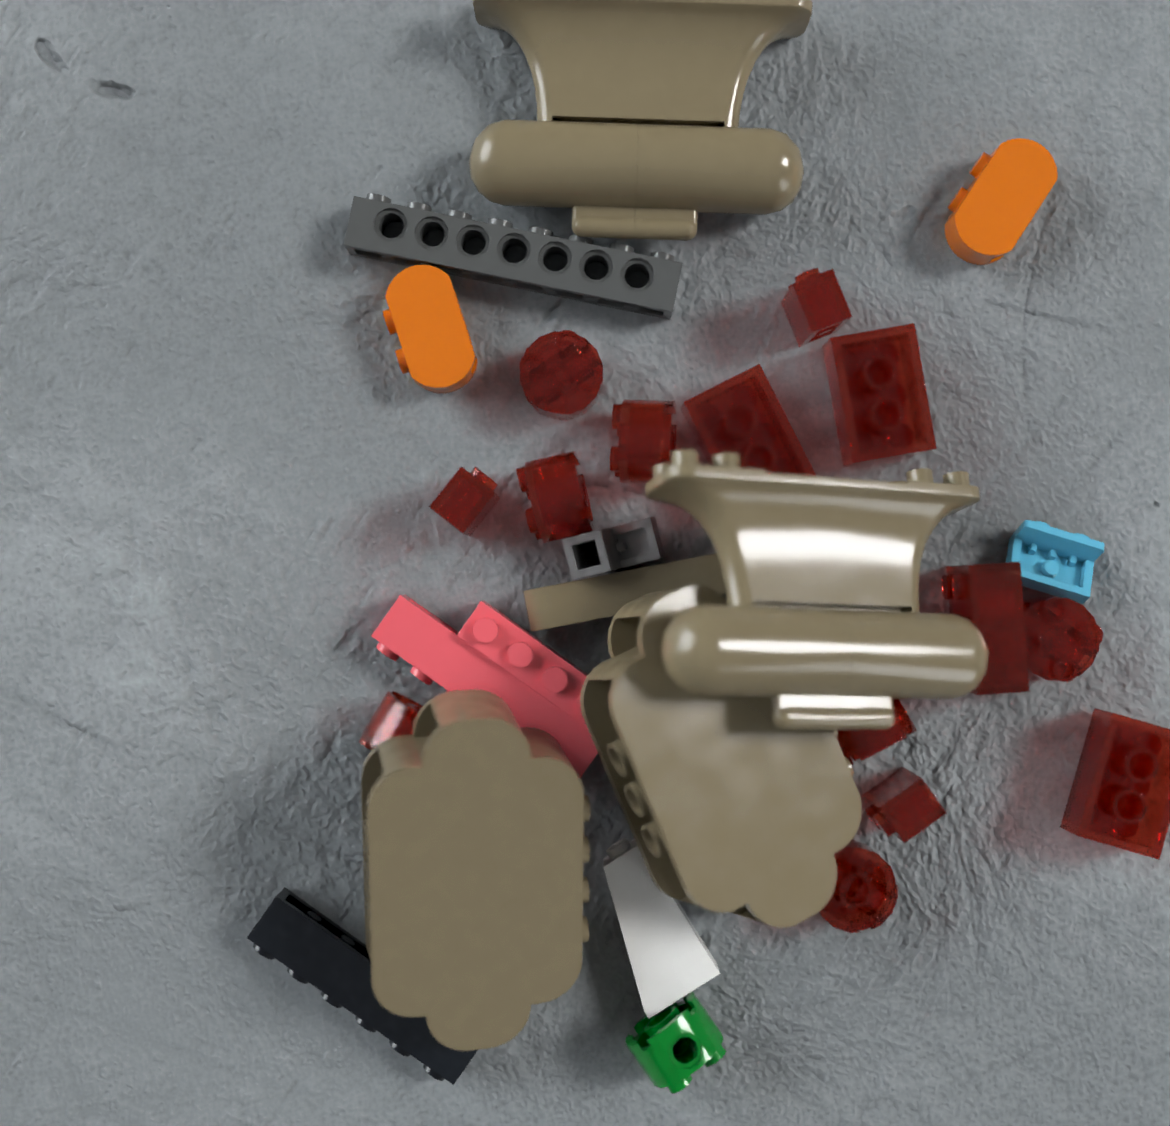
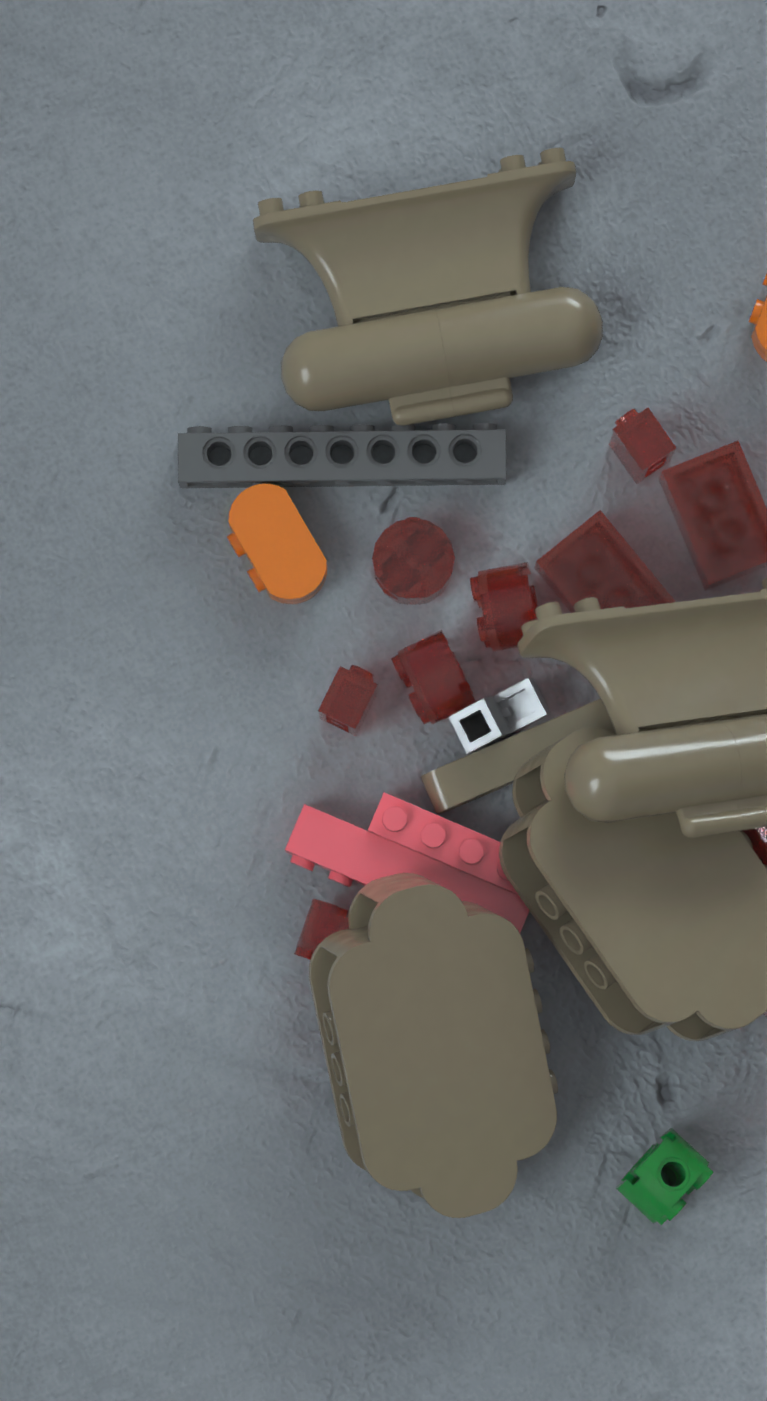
camera: 15 degrees left, 5 degrees down
(341, 968) = (348, 1192): black brick -> none
(657, 933) = (622, 1078): white slope -> none

